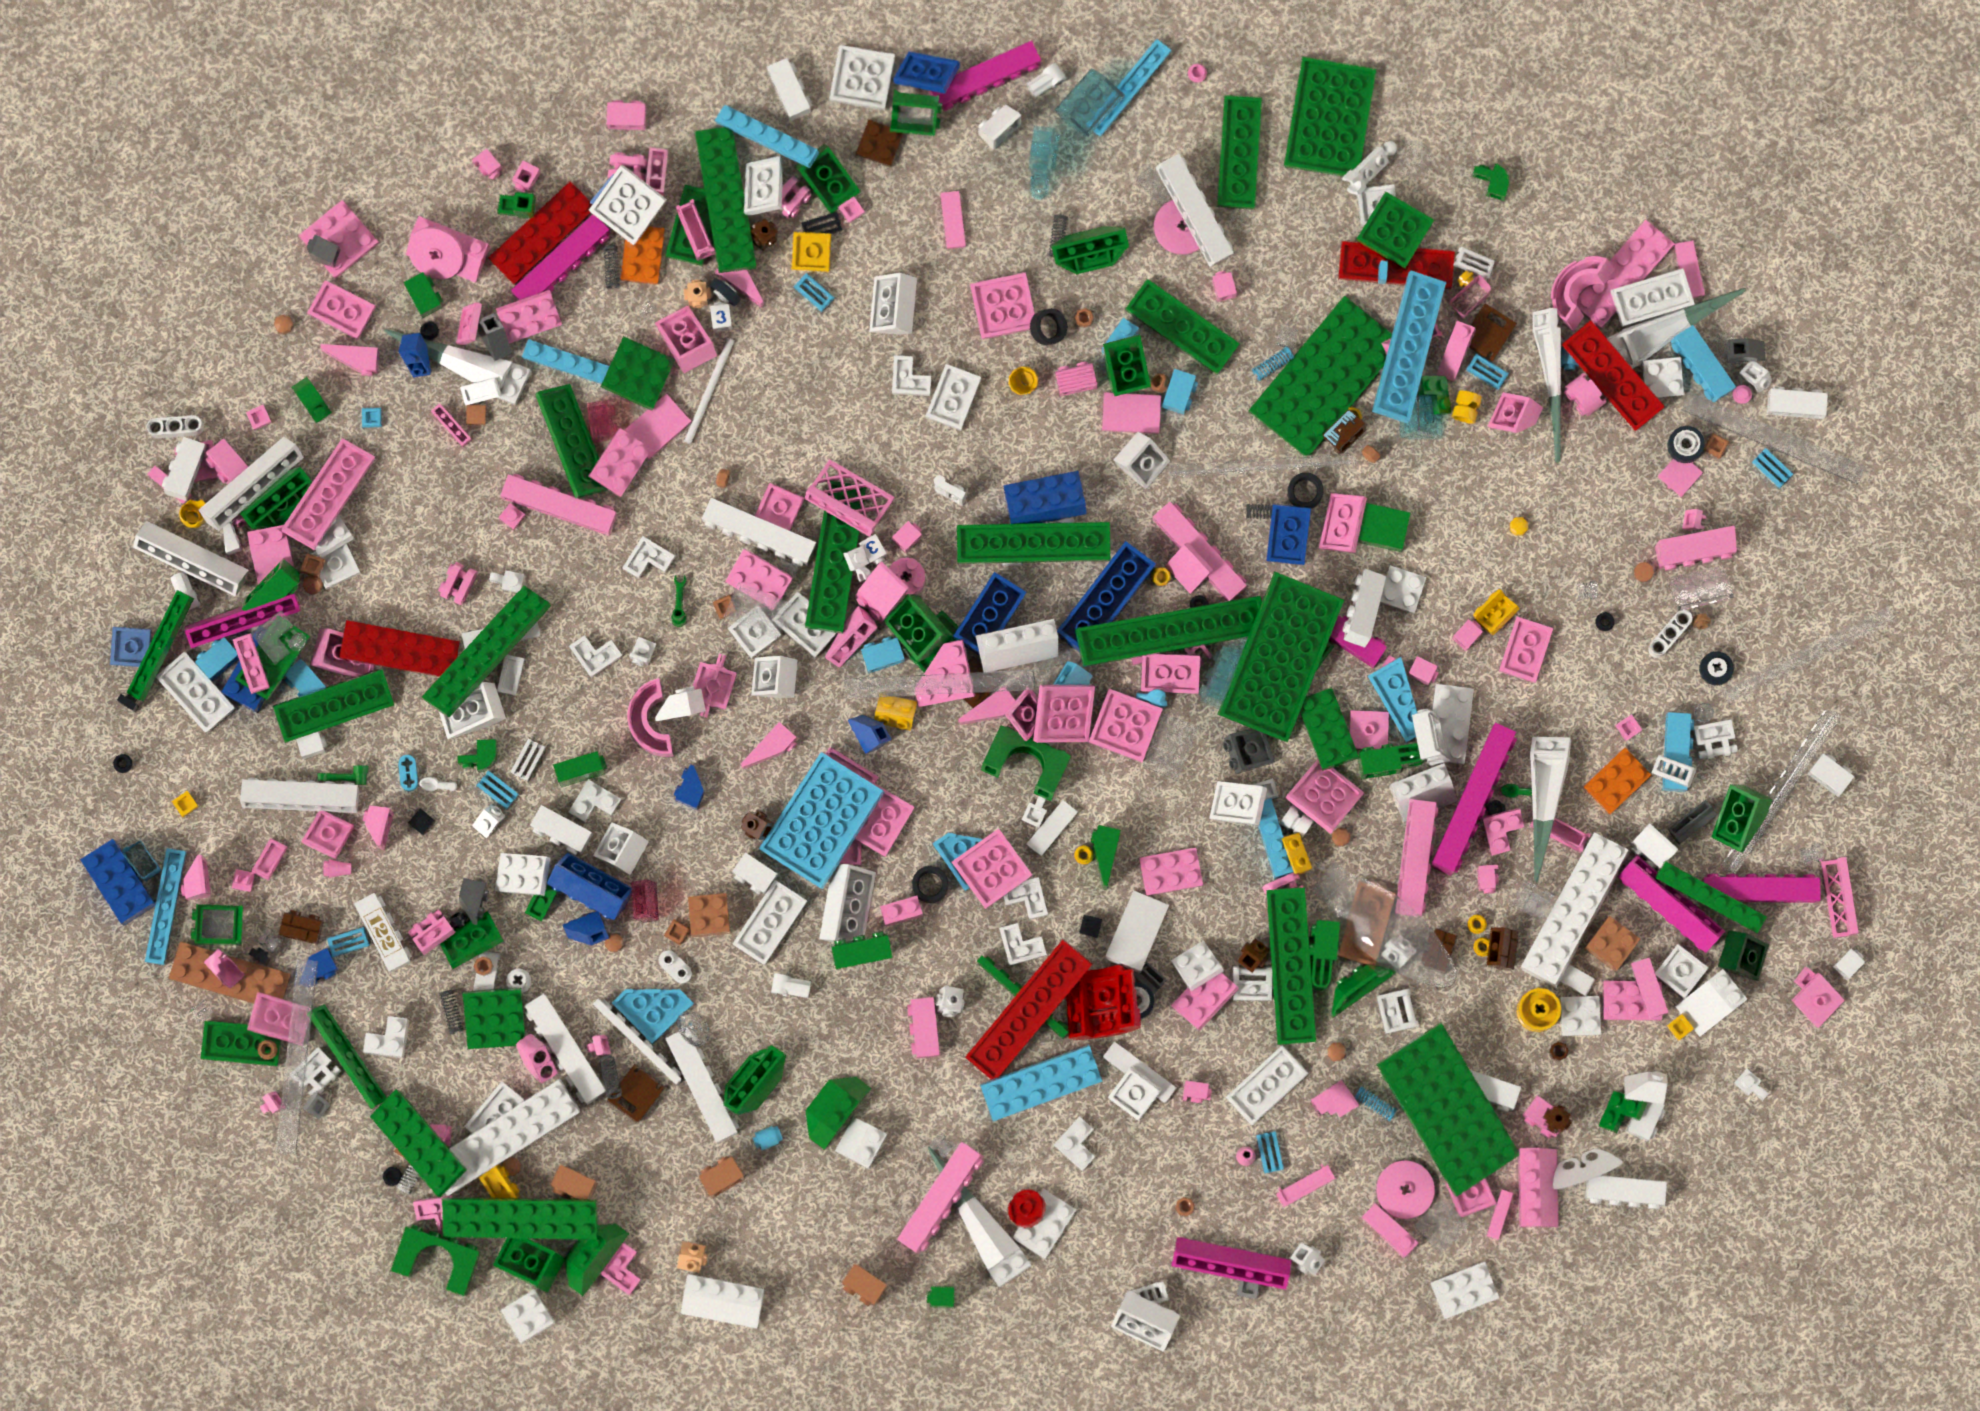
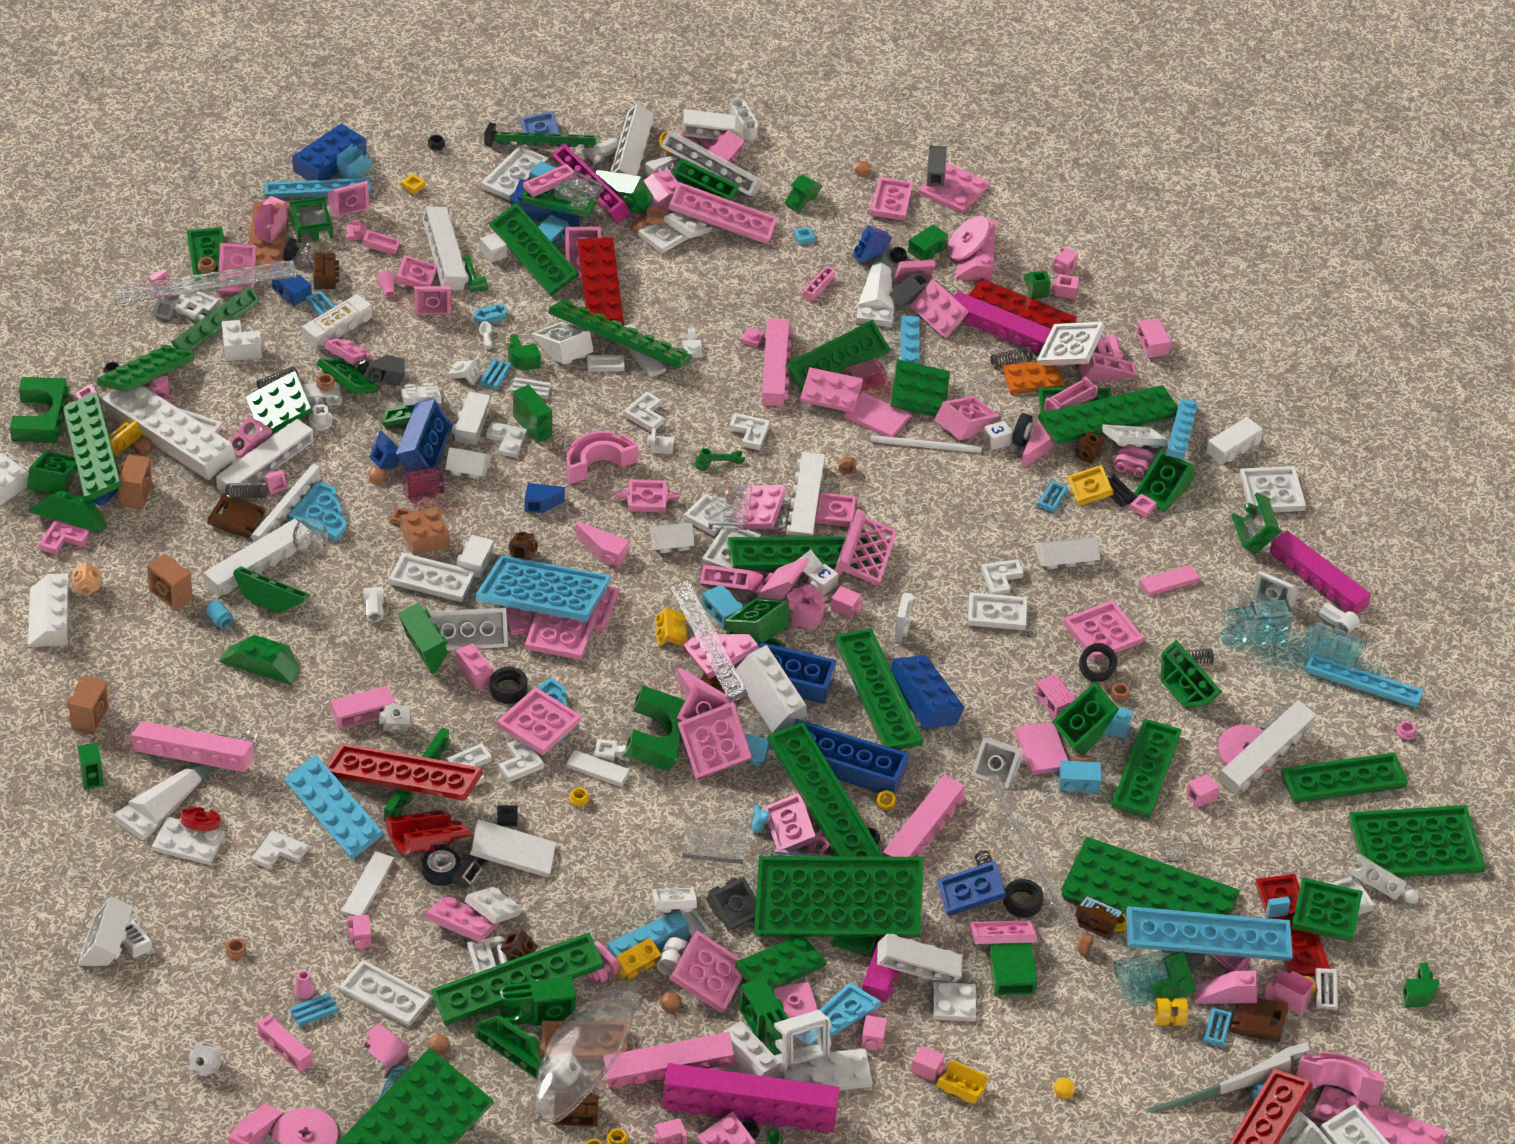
camera: 70 degrees right, 35 degrees down
(258, 417) = (774, 167): bright pink plate -> none
(361, 359) = (853, 214): bright pink slope -> none
(421, 821) = (448, 331): black plate -> none
(454, 573) = (676, 312): bright pink brick -> none
(476, 415) = (835, 298): nougat tile -> none
(481, 391) = (857, 292): white tile -> none
(675, 966) = (367, 521): white plate -> none
(683, 703) = (619, 465): white slope -> none
(700, 299) = (1011, 411): light nougat brick -> none
(861, 1142) = (231, 686): white slope -> none
(869, 733) = (641, 610): blue slope -> none
(879, 143) = (1216, 515): reddish brown plate -> none
(926, 72) = (1300, 526): blue plate -> none
(1026, 375) = (1036, 652): yellow hair -> none
(1105, 847) = (582, 805): green slope -> none
(1125, 725) = (723, 801): bright pink plate -> none
(1135, 1093) = (344, 883): white plate -> none
(1171, 871) = (585, 870): bright pink plate -> none
(1189, 567) = (903, 815): bright pink tile -> none
(1231, 1263) = (184, 993): dark pink brick -> none
(1247, 1289) = (162, 1018): light grey plate -> none
(1287, 351) = (1128, 837): medium azure piece -> none
(1391, 1012) = (499, 1080): white plate -> none
(1515, 413) = (1184, 1058): bright pink slope -> none
(1525, 649) = (933, 1120): bright pink plate -> none
(1585, 395) = (1229, 1107): bright pink brick -> none

